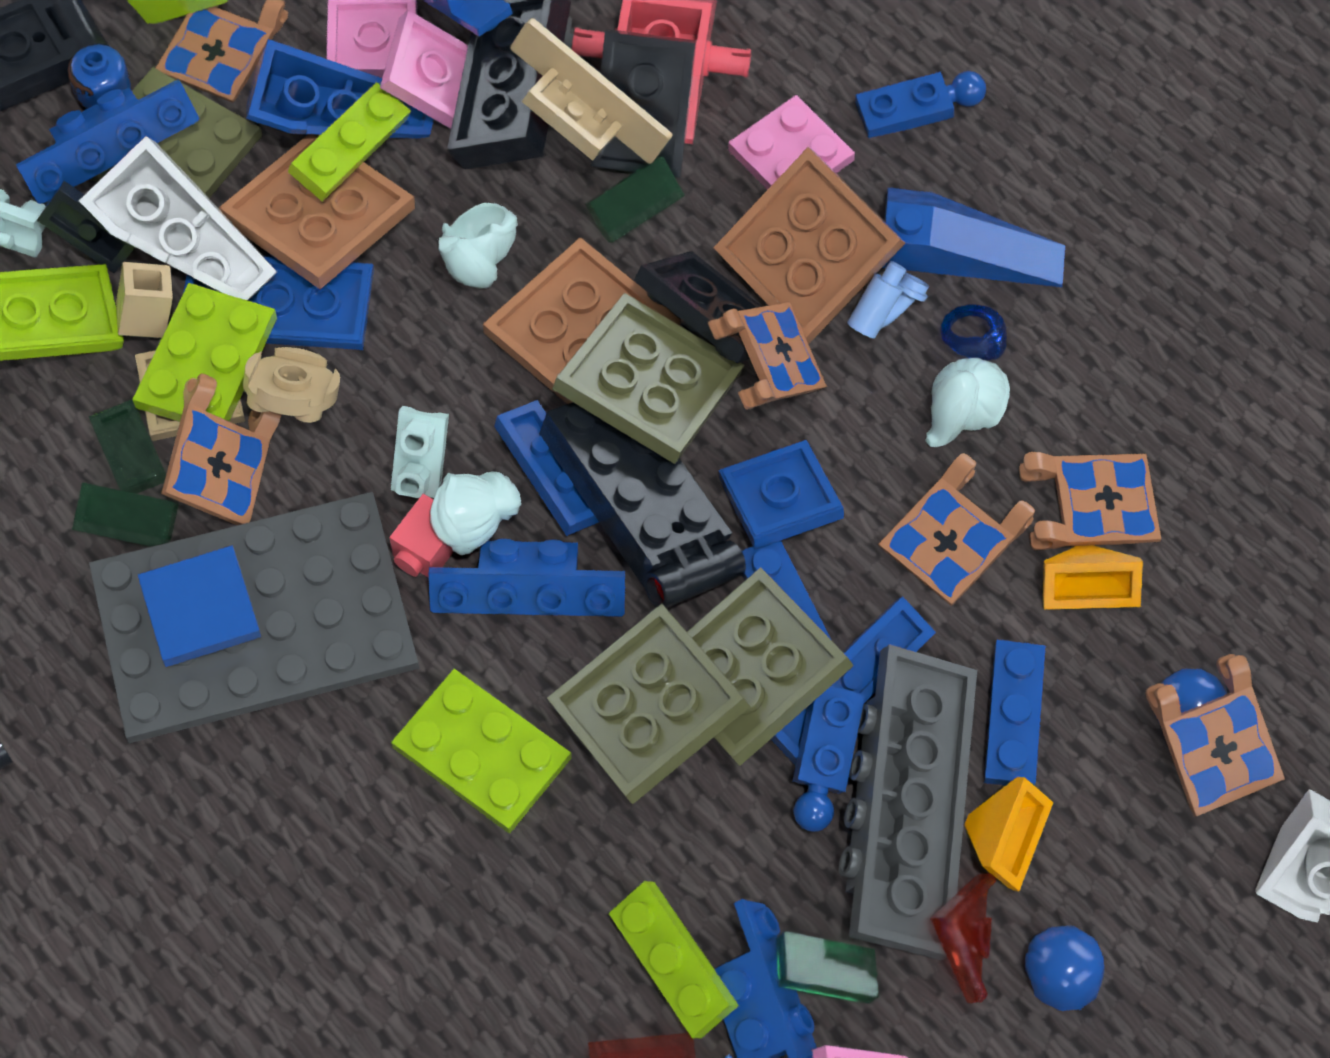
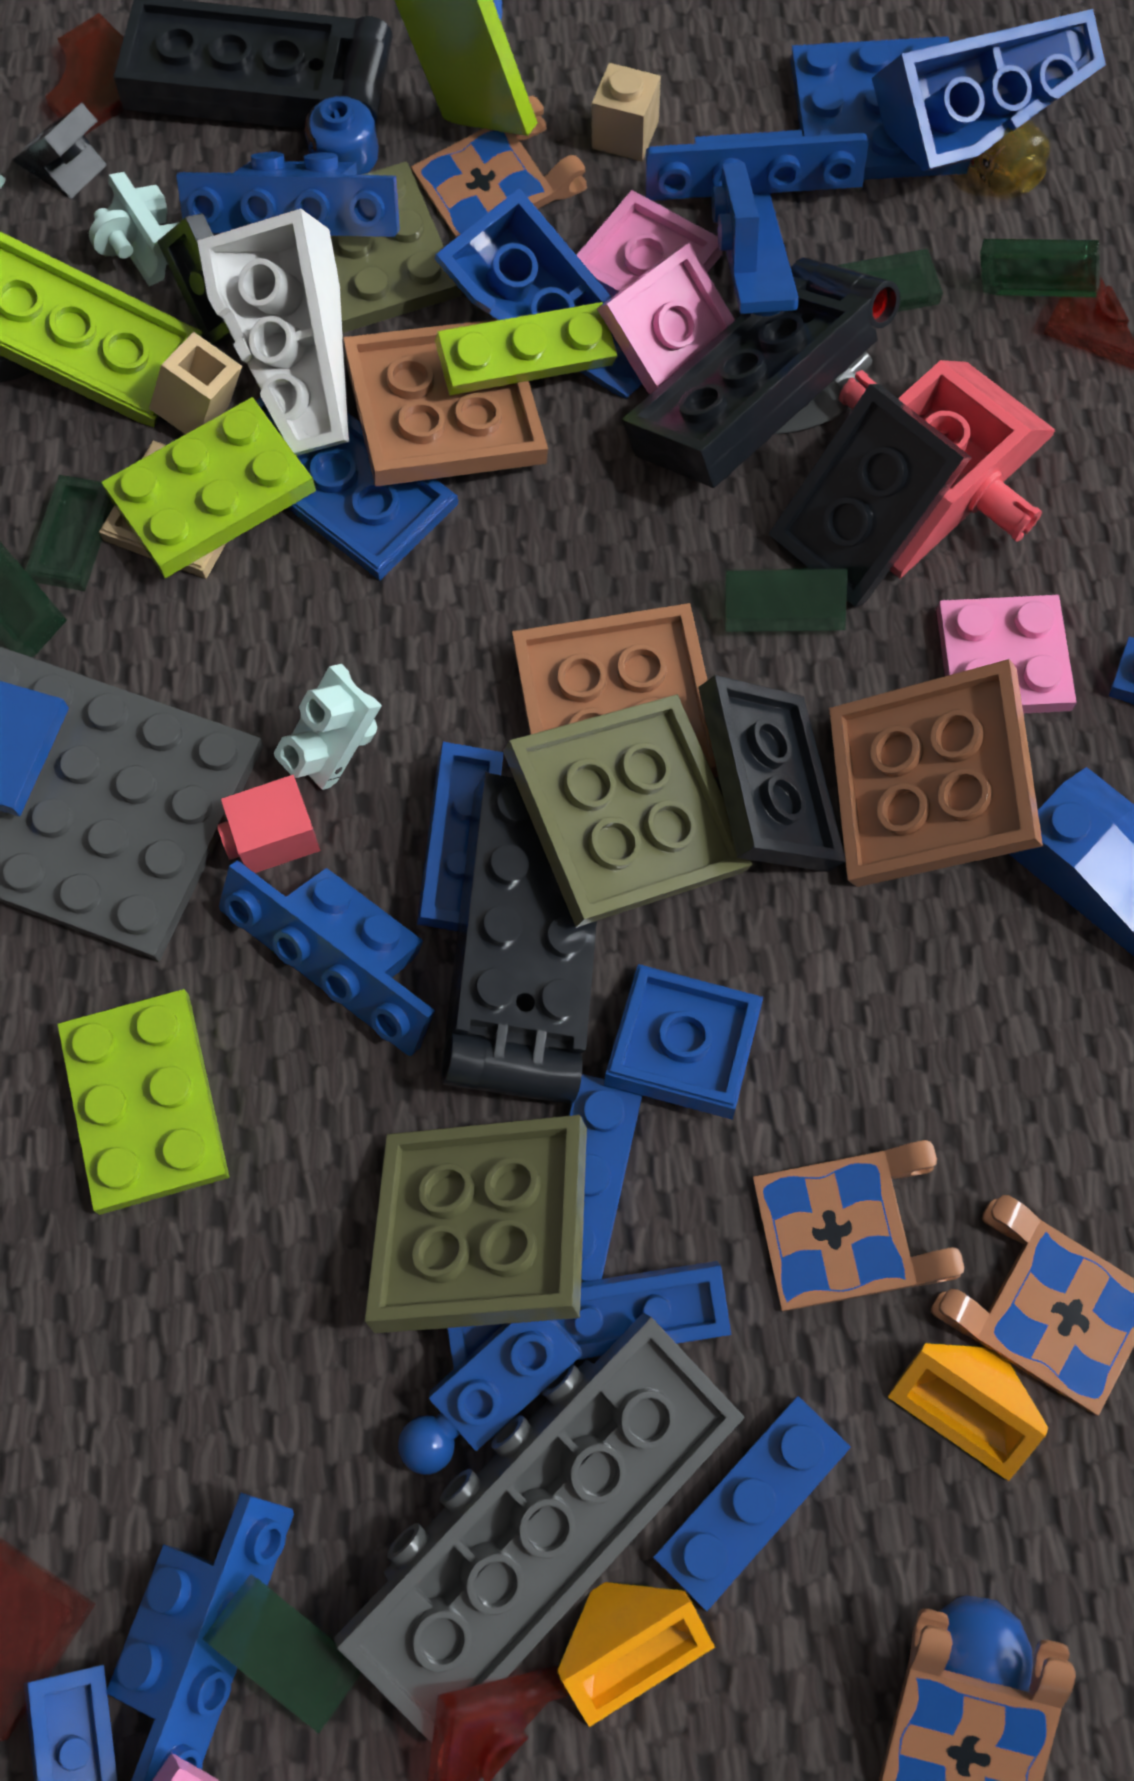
camera: 40 degrees right, 5 degrees up
(216, 461) = (126, 600): nougat flag -> none
(291, 383) = (262, 593): tan plate -> none
(471, 508) = (326, 824): light aqua hair -> none
(477, 243) = (573, 541): light aqua hair -> none
(582, 101) = (790, 449): tan bracket -> none
(648, 703) = (334, 1185): olive plate -> none
(673, 959) = (133, 1504): lime plate -> none
(776, 351) = (796, 873): nougat flag -> none
(886, 299) = (980, 896): light blue plant -> none
(966, 397) = (987, 1076): light aqua hair -> none
(987, 347) = (1064, 1032): clear blue piece -> none

